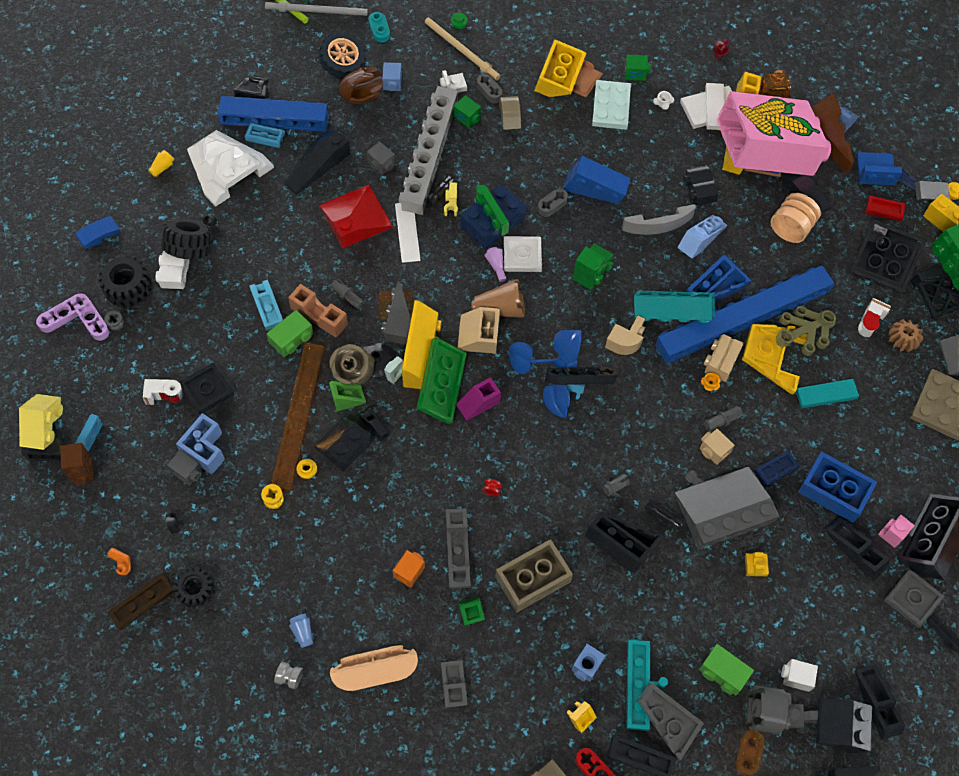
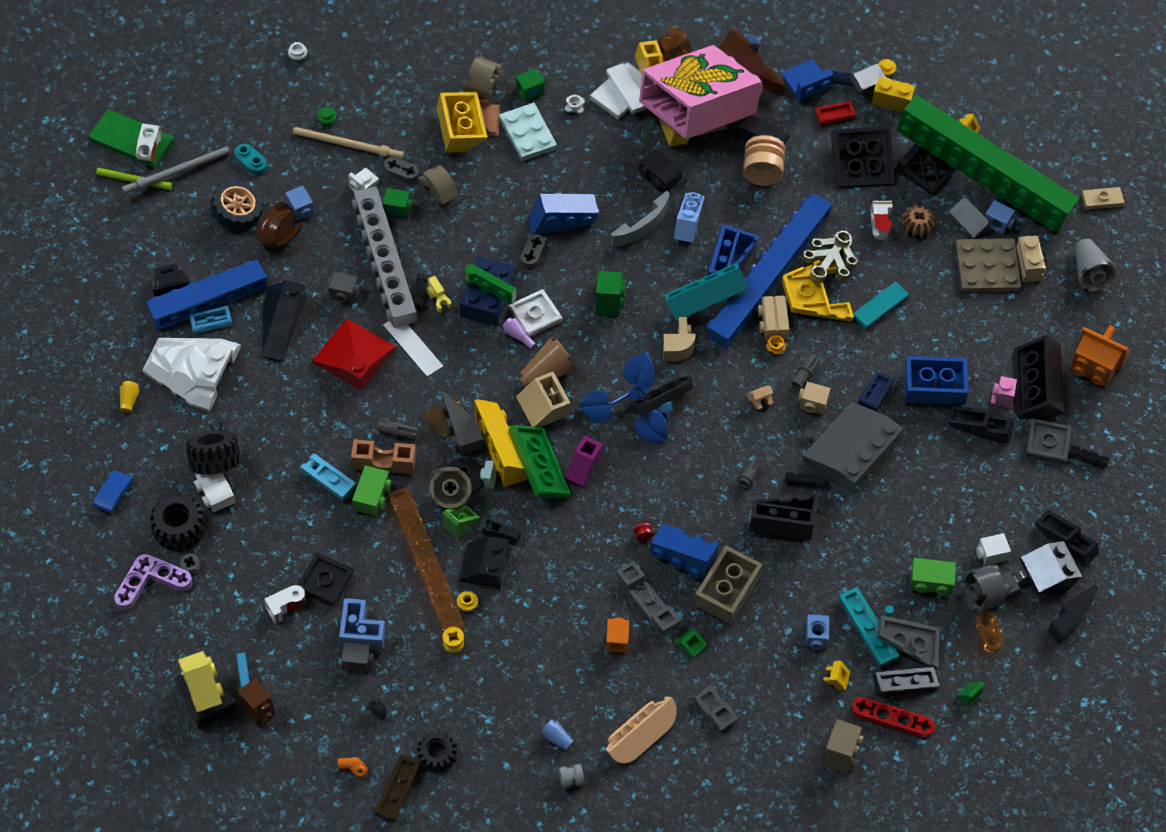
camera: 30 degrees left, 5 degrees down
(514, 523) = (684, 551): none -> blue wedge
(599, 44) = (482, 77): none -> dark tan brick
(669, 418) = (761, 393): none -> light nougat tile
(721, 48) = (598, 28): dark red plate -> none
(756, 564) = (906, 480): yellow tile -> none

